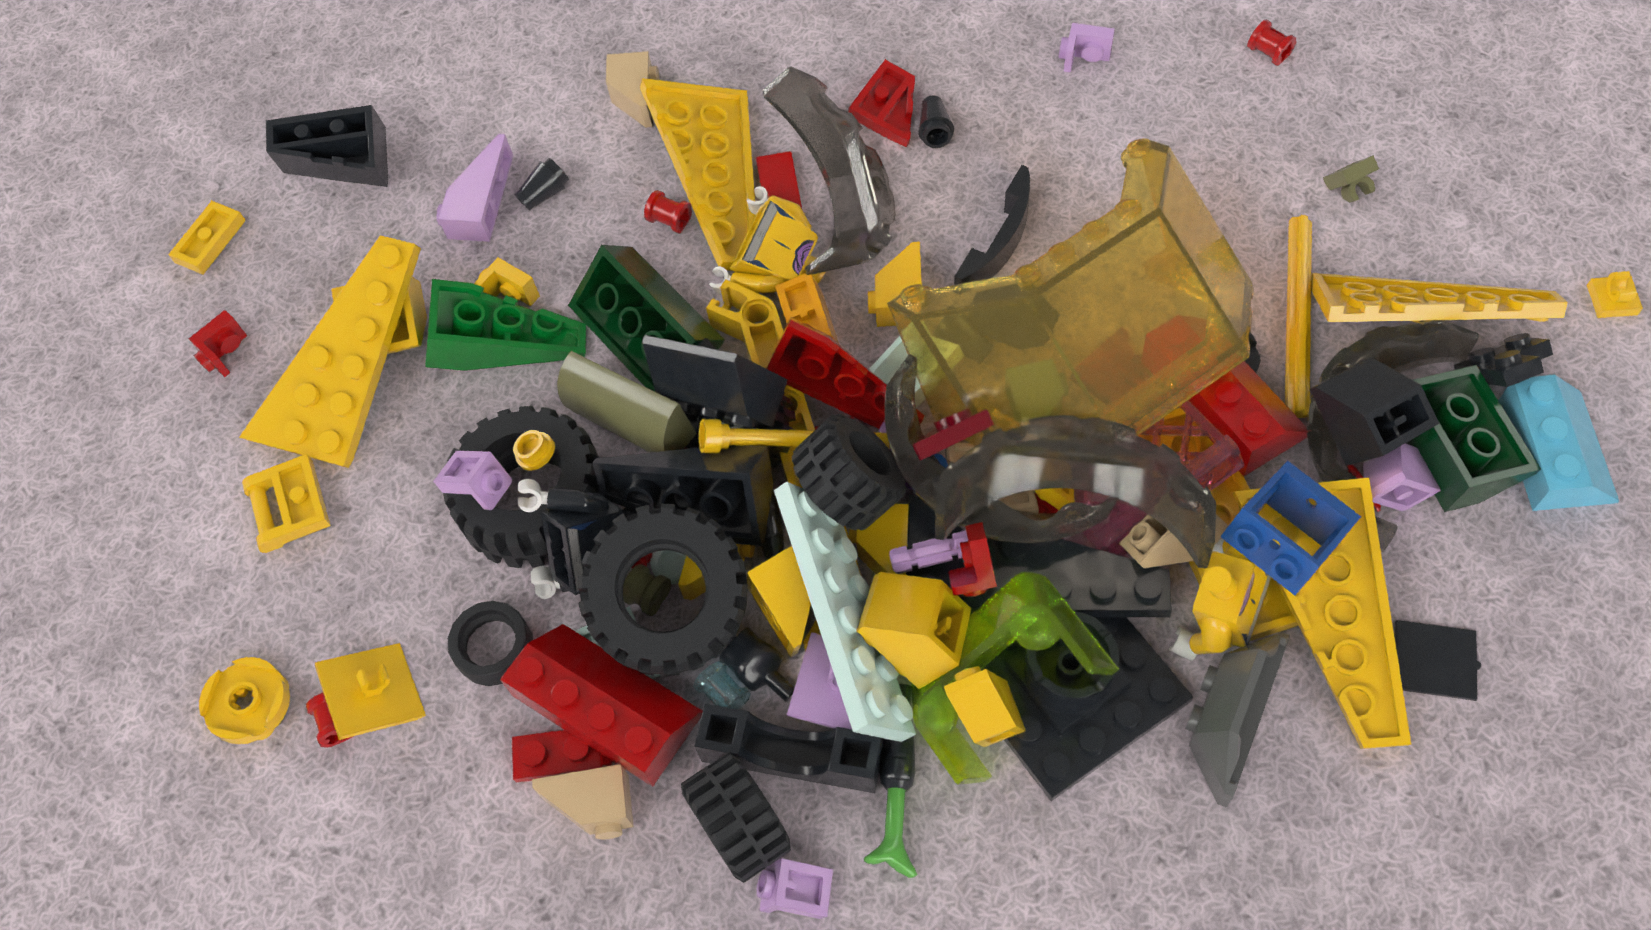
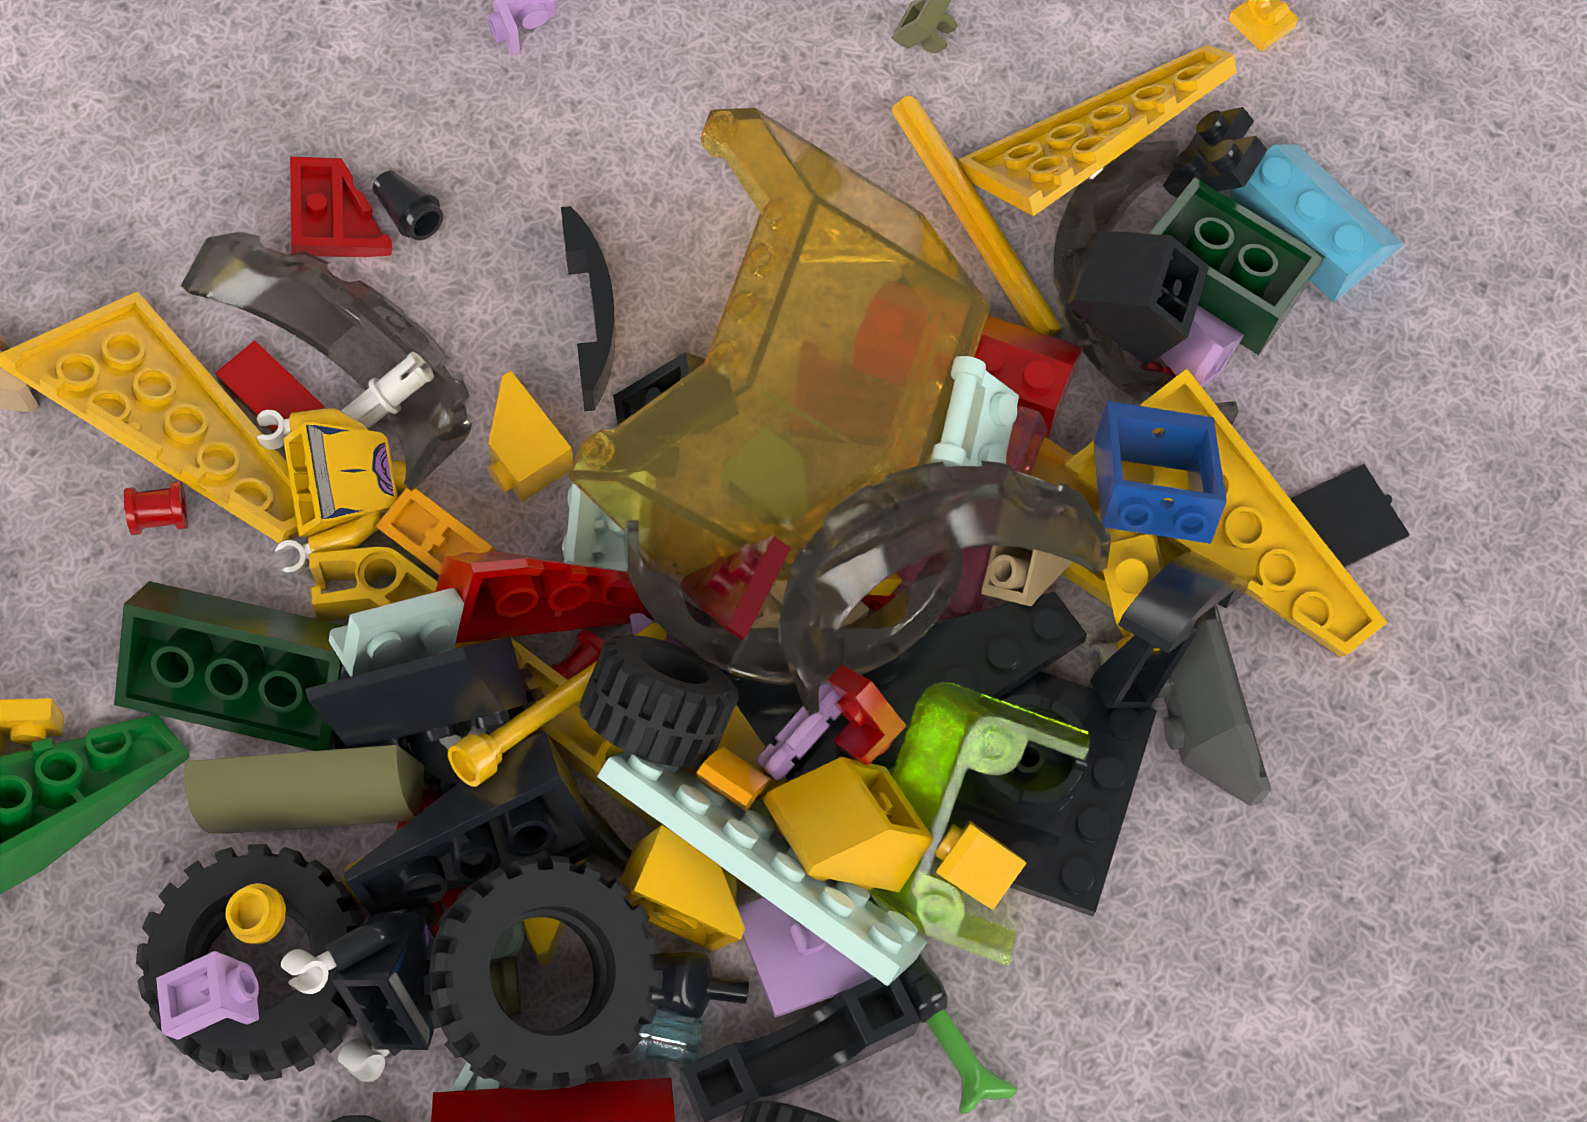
camera: 50 degrees left, 5 degrees up
(734, 337) = (398, 632): none -> light aqua bracket
(840, 217) = (389, 391): none -> white axle
(863, 547) = (733, 778): none -> light orange slope
(1189, 668) = (1136, 673): none -> black slope
(1194, 428) = (977, 417): none -> light aqua plate
(1229, 612) = (1177, 597): none -> black slope

